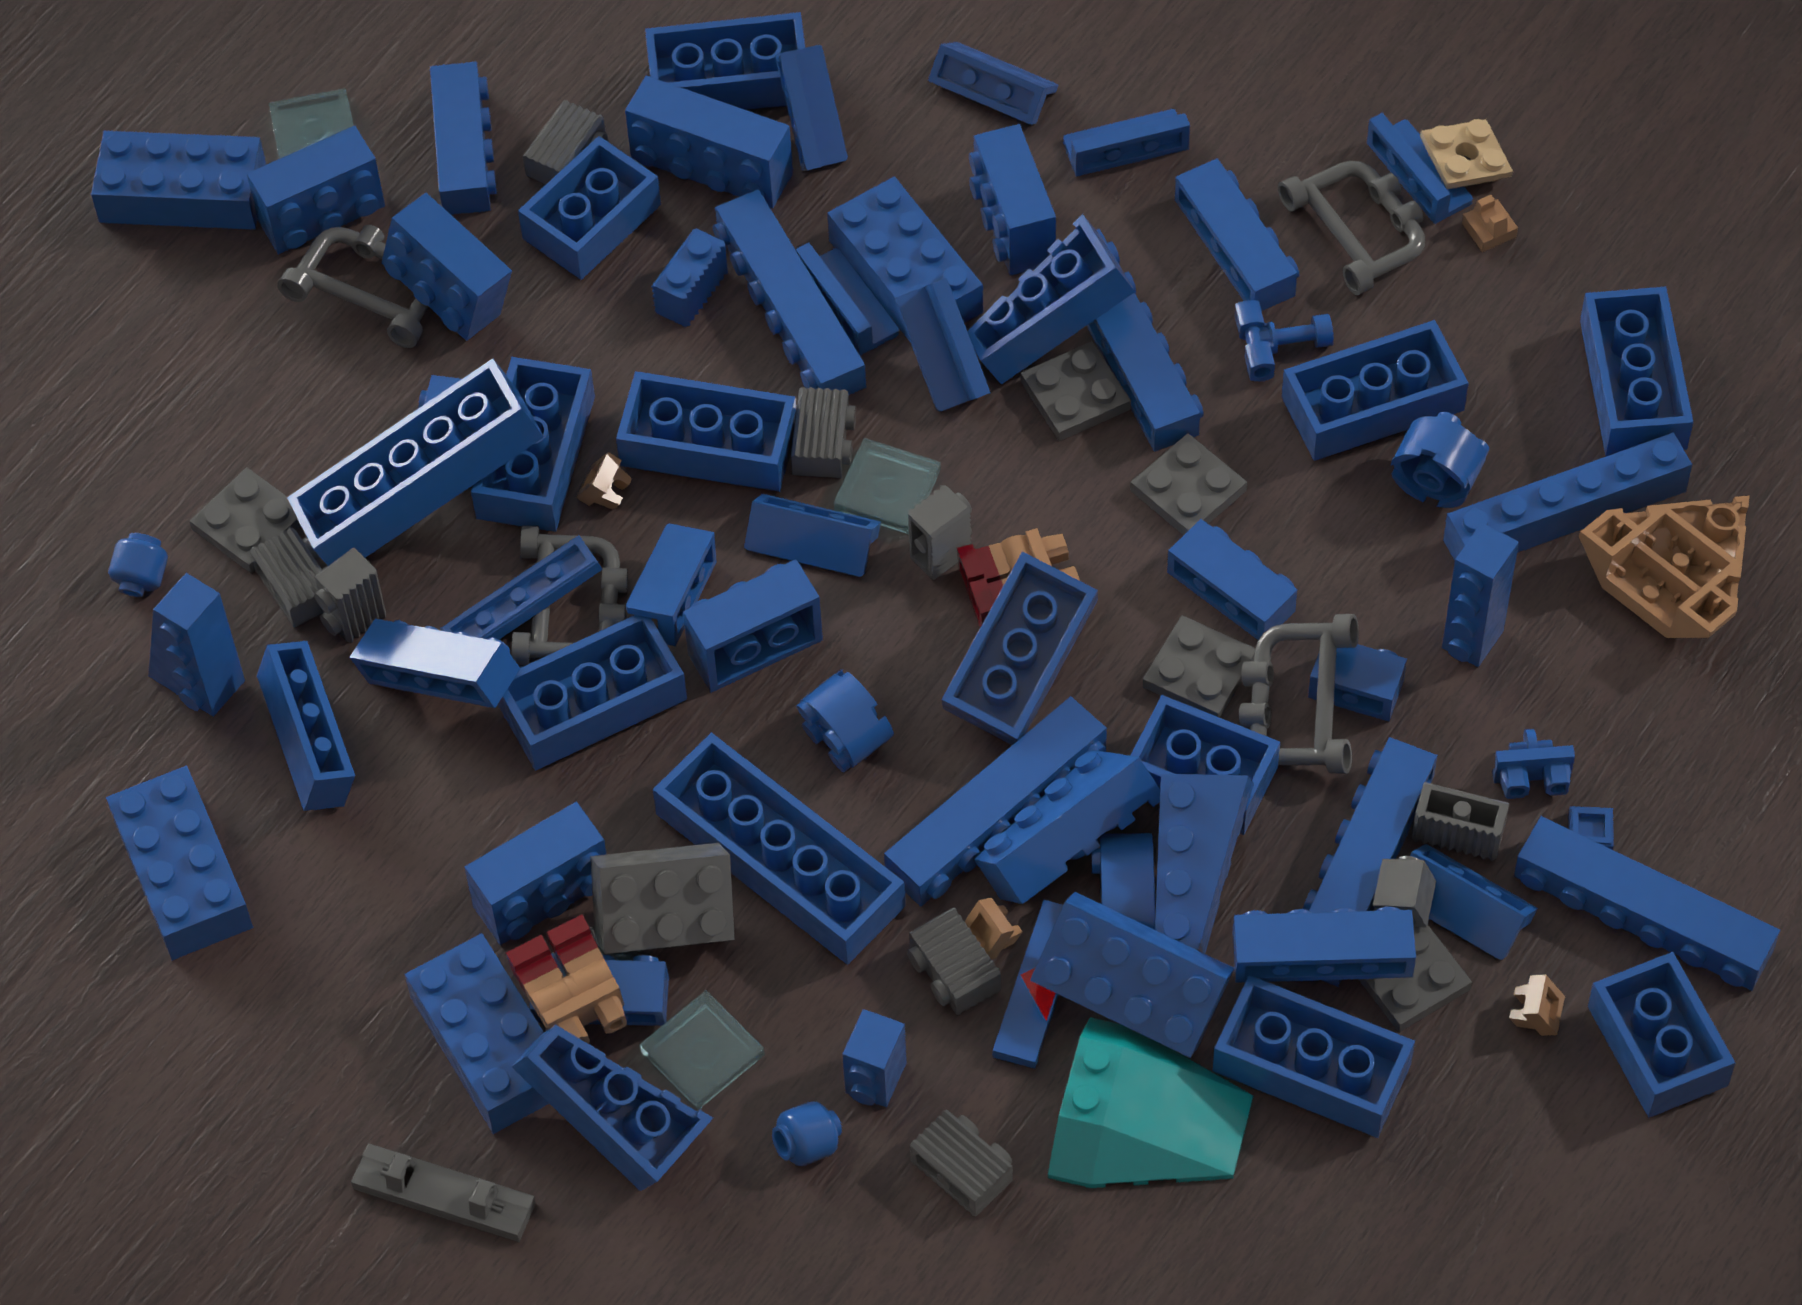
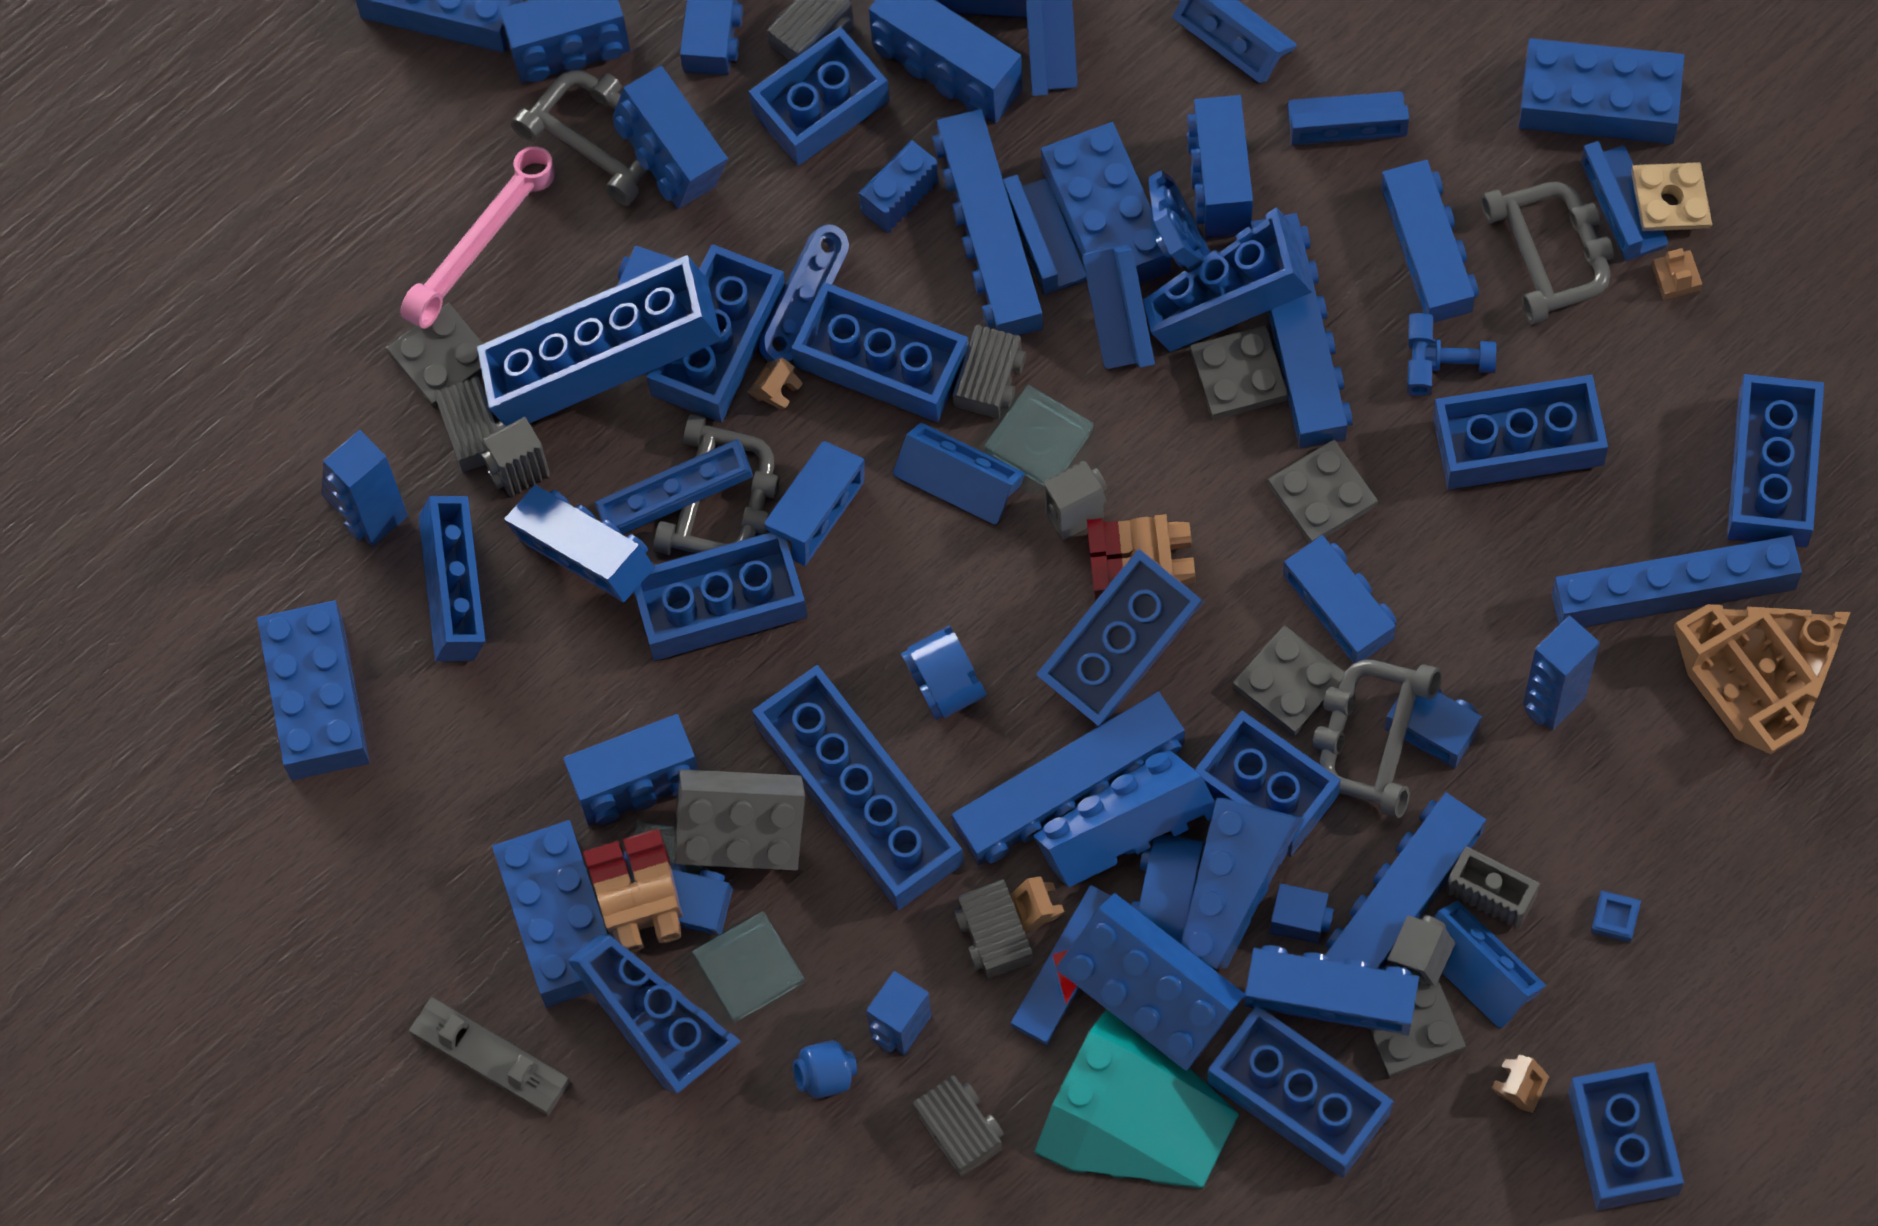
camera: 15 degrees right, 10 degrees up
(138, 564) = (330, 383): blue head -> none
(222, 465) = (425, 301): none -> bright pink piece
(612, 390) = (801, 290): none -> blue plate
(753, 625) = (880, 560): blue brick -> none
(979, 258) = (1175, 223): none -> blue plate
(1269, 884) = (1301, 914): none -> blue brick
(1372, 71) = (1601, 91): none -> blue brick
(1439, 460) = (1562, 518): blue brick -> none
(1533, 761) = (1576, 838): blue hips -> none
(1646, 903) = (1647, 1003): blue brick -> none

